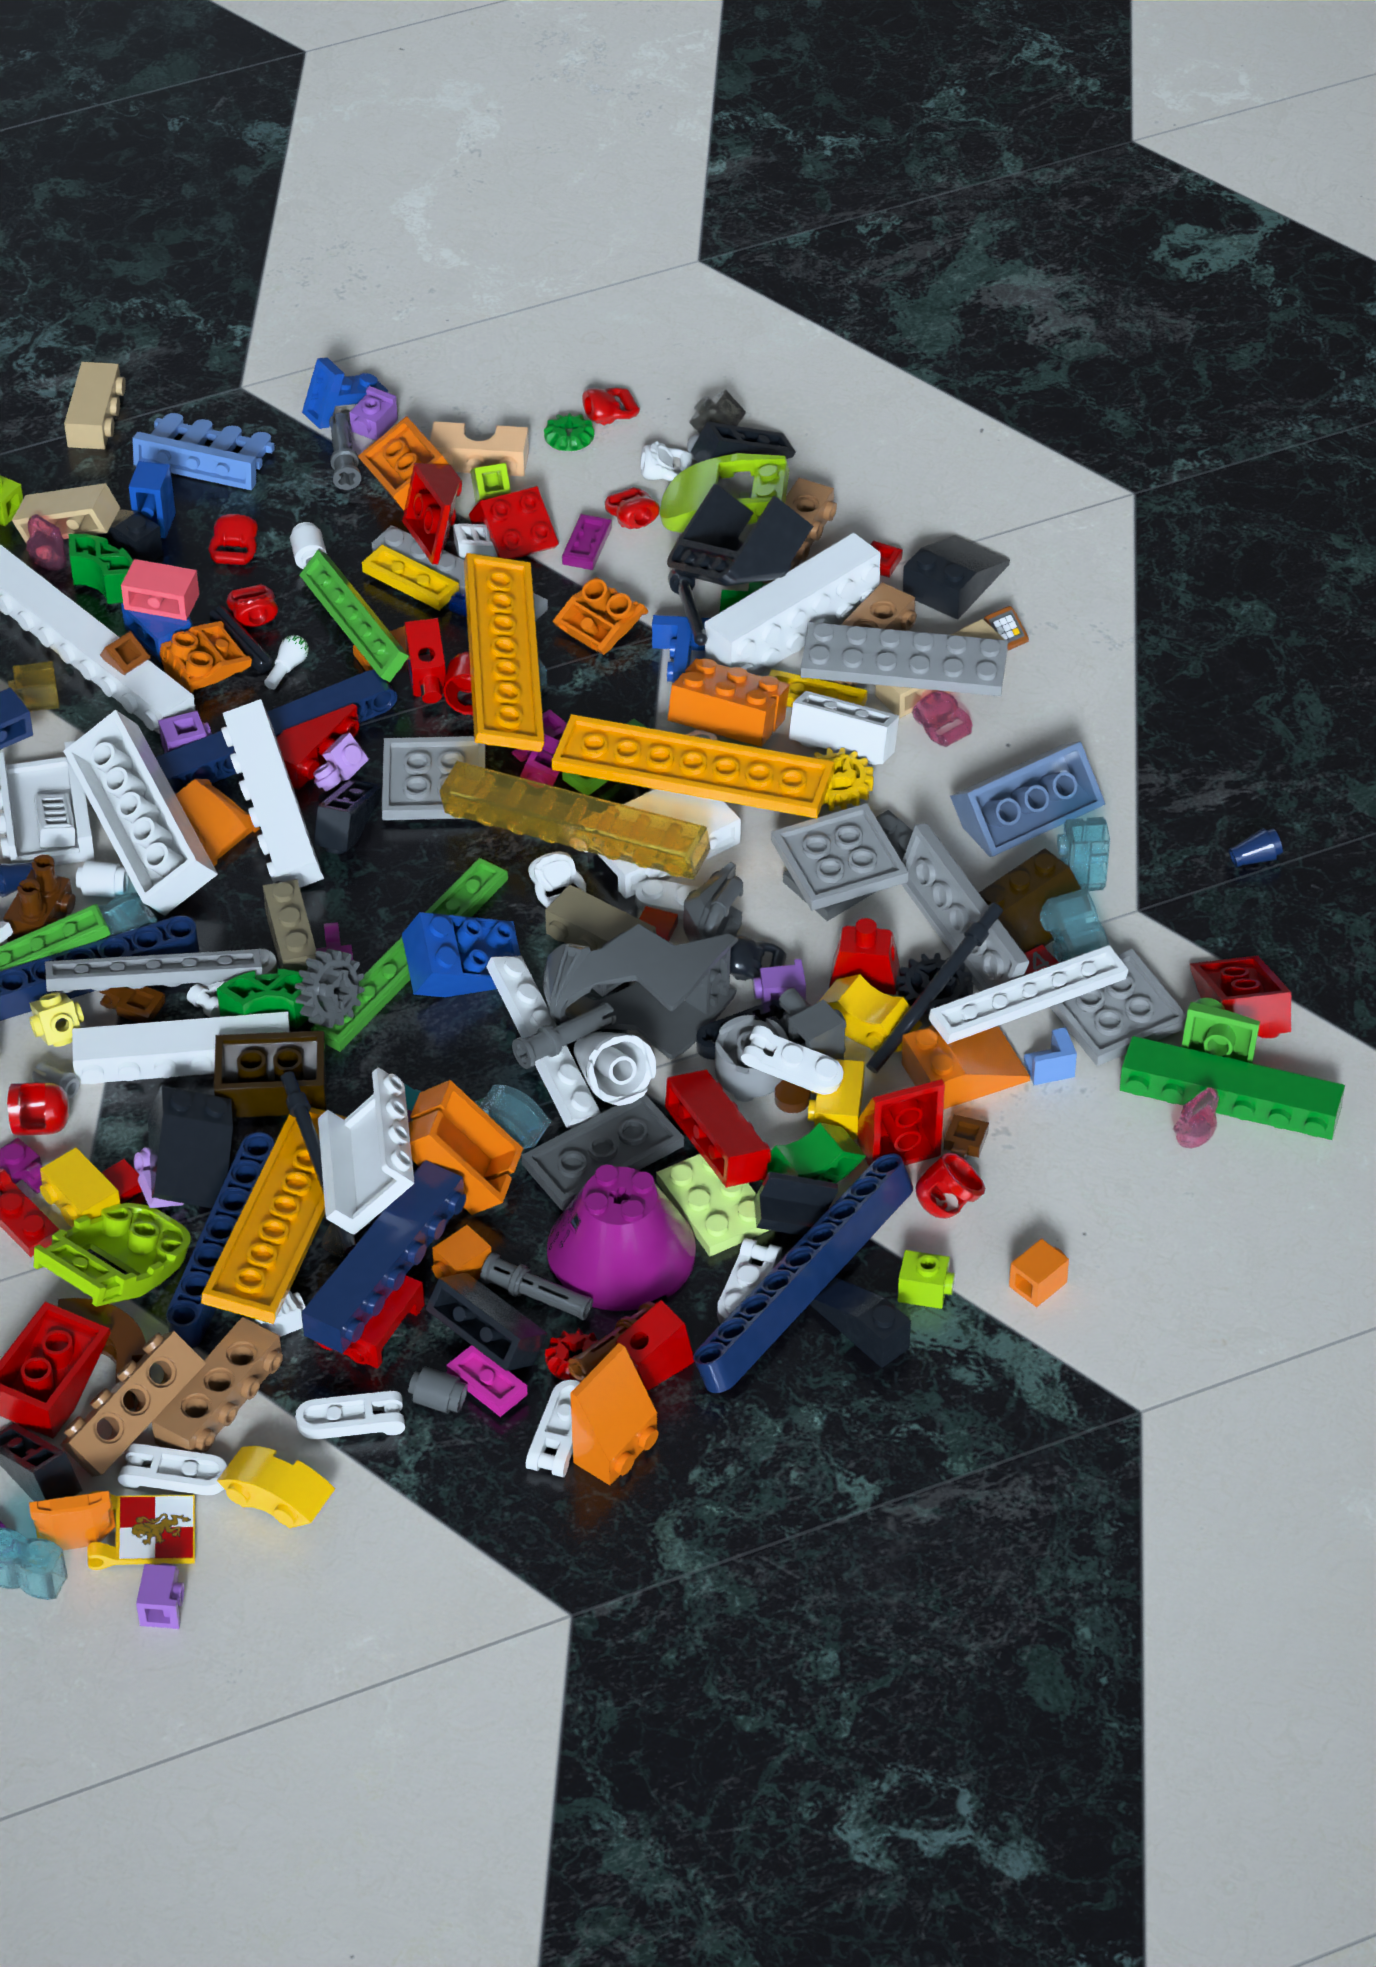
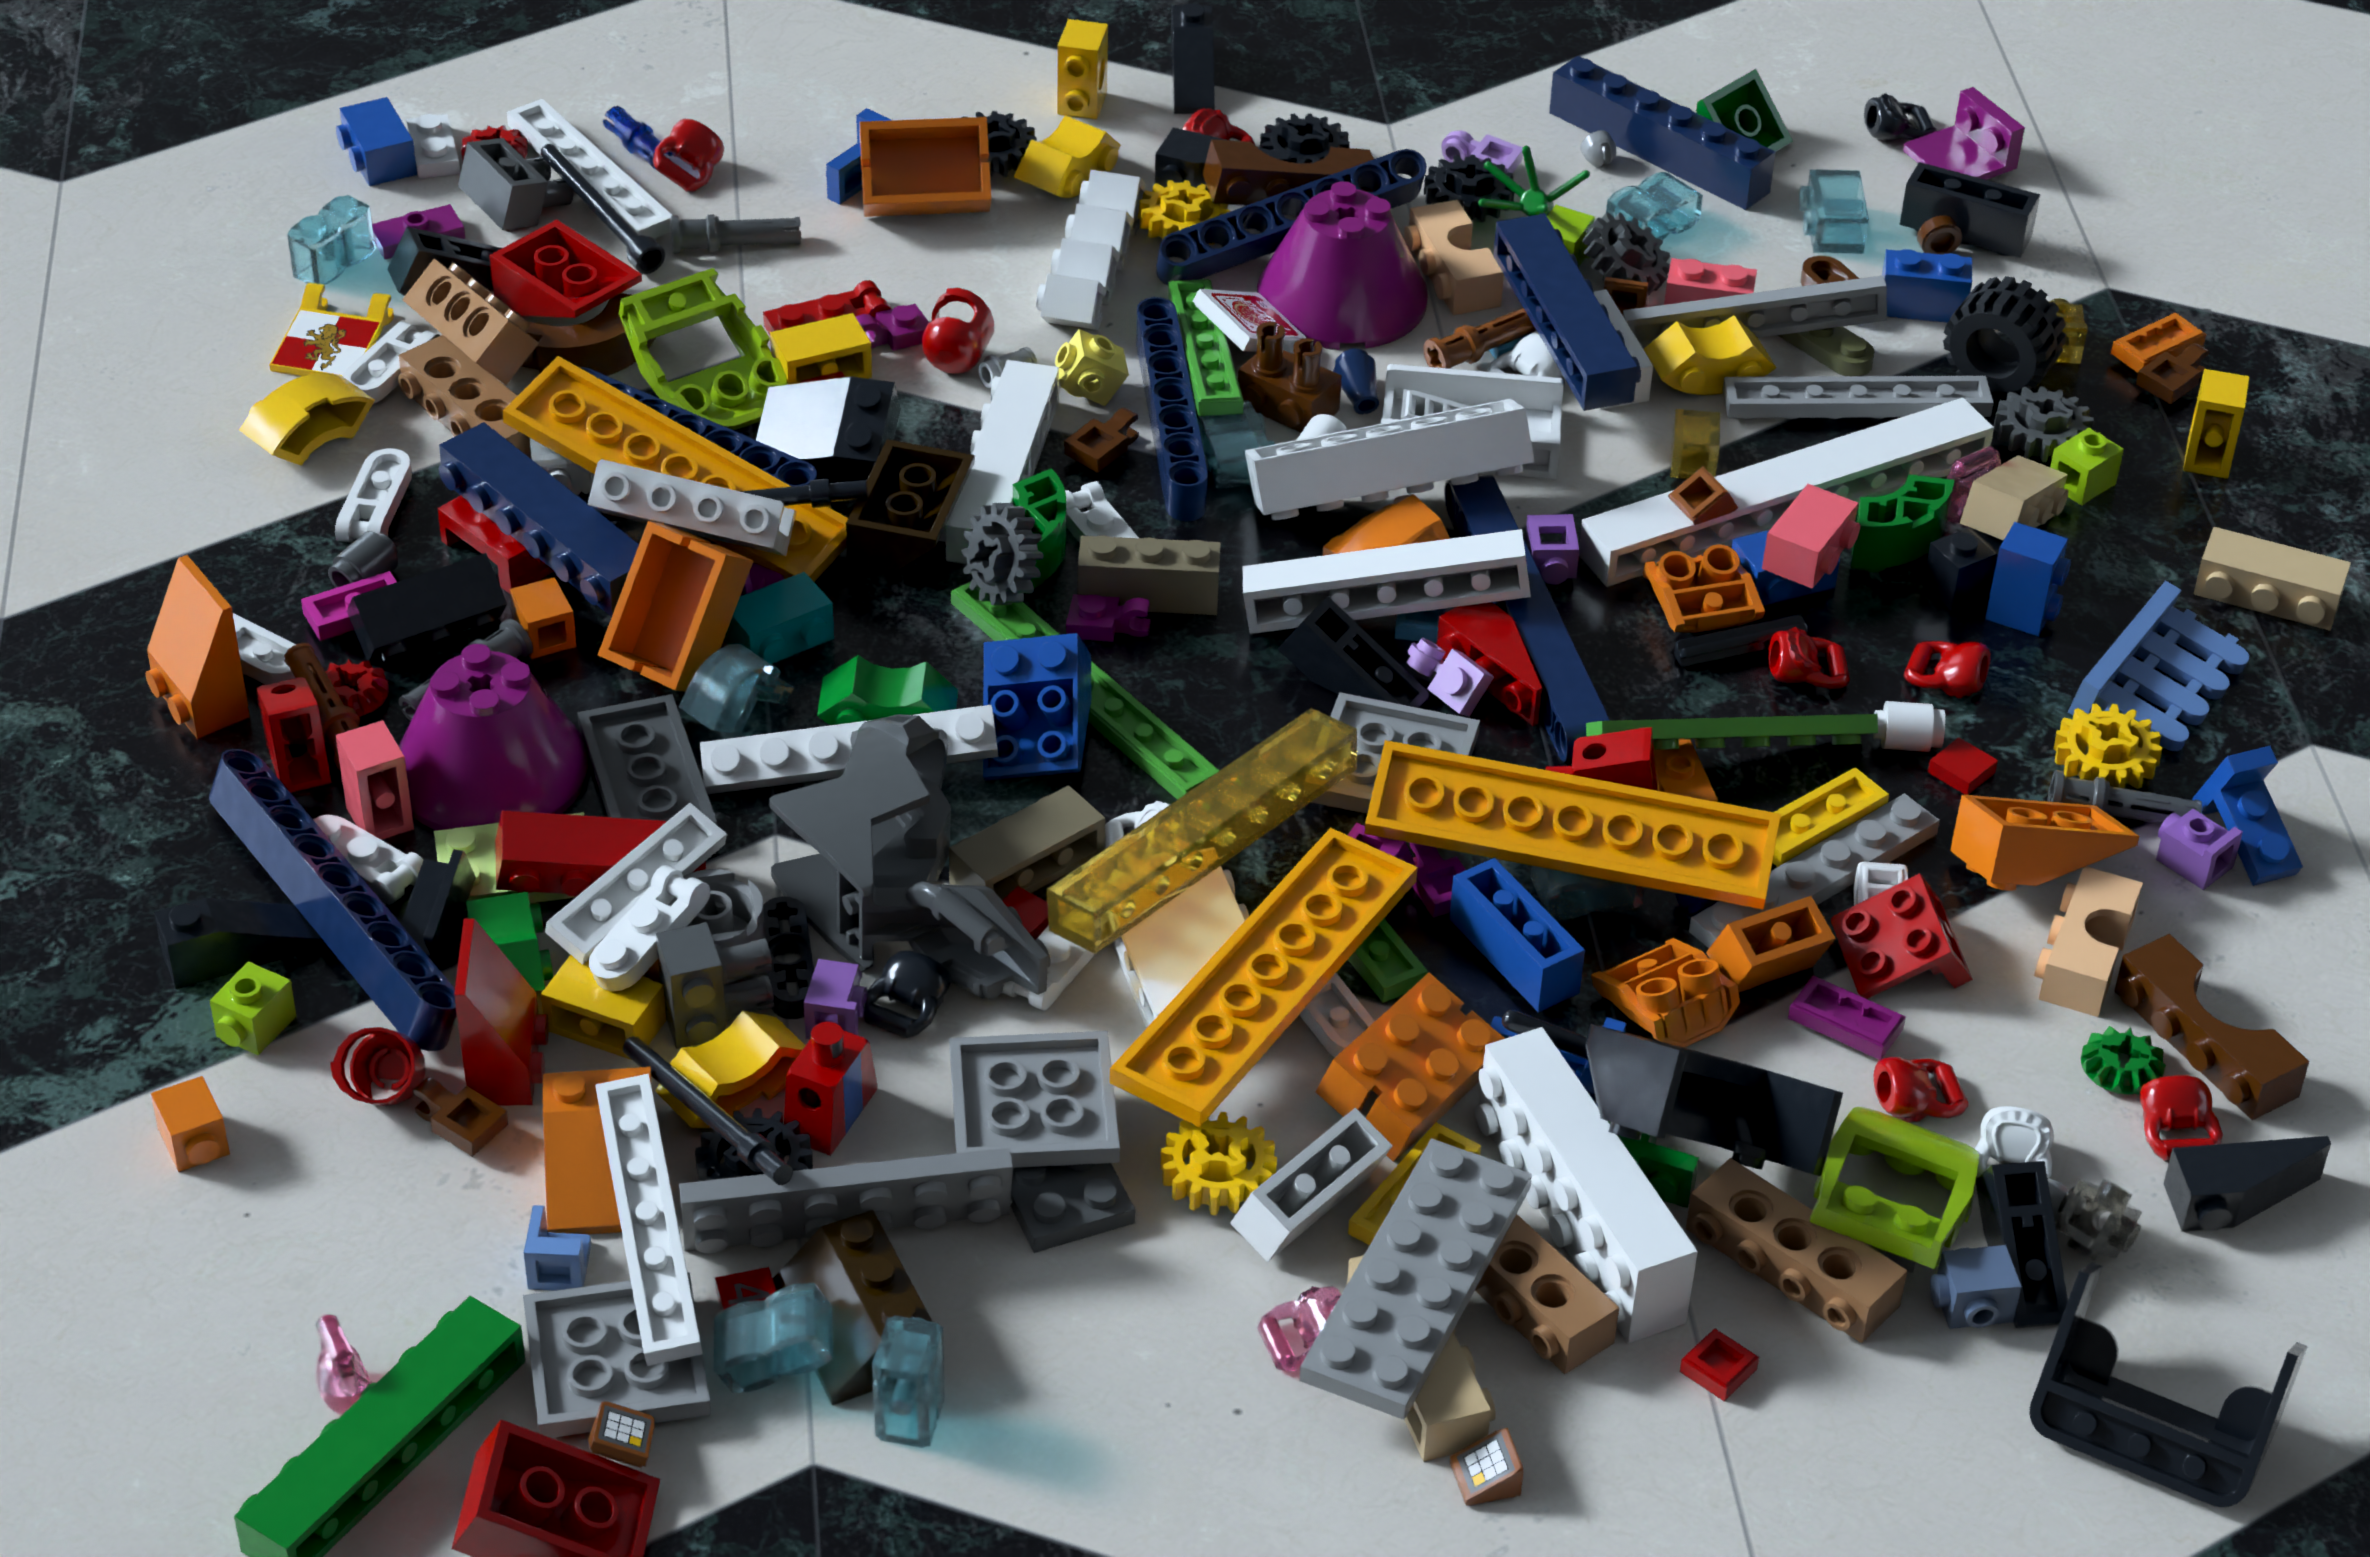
camera: 105 degrees right, 5 degrees down
(74, 1519) = (348, 255): orange slope -> none
(150, 970) = (1113, 434): light grey plate -> none
(160, 1596) = (227, 322): medium lavender brick -> none
(290, 654) = (1691, 676): white piece -> none
(296, 458) = (2108, 746): none -> yellow gear
(331, 524) = (1962, 766): none -> red tile
(431, 506) = (1907, 821): red slope -> none
(484, 1036) = (871, 692): none -> green brick
(490, 481) = (1992, 924): lime brick -> none
(550, 1040) = (811, 718): dark grey pin -> none
(554, 569) = (1772, 944): none -> orange brick
(561, 378) = (2248, 1066): none -> reddish brown arch
(591, 678) = (1516, 934): none -> blue brick
(615, 1065) = (748, 772): white cone -> none
(655, 374) = (2236, 1181): none -> black slope
(695, 1273) = (375, 780): none -> coral brick
(750, 1083) = (679, 843): none -> white plate
(796, 457) = (1976, 1287): none -> sand blue brick
(853, 381) = (2143, 1431): none -> black windscreen
(951, 574) = (1648, 1436): black slope -> none
(1029, 799) = (1085, 1376): sand blue slope -> none
(1180, 978) = (622, 1434): none -> slope
(1219, 1031) = (458, 1422): bright green slope -> none

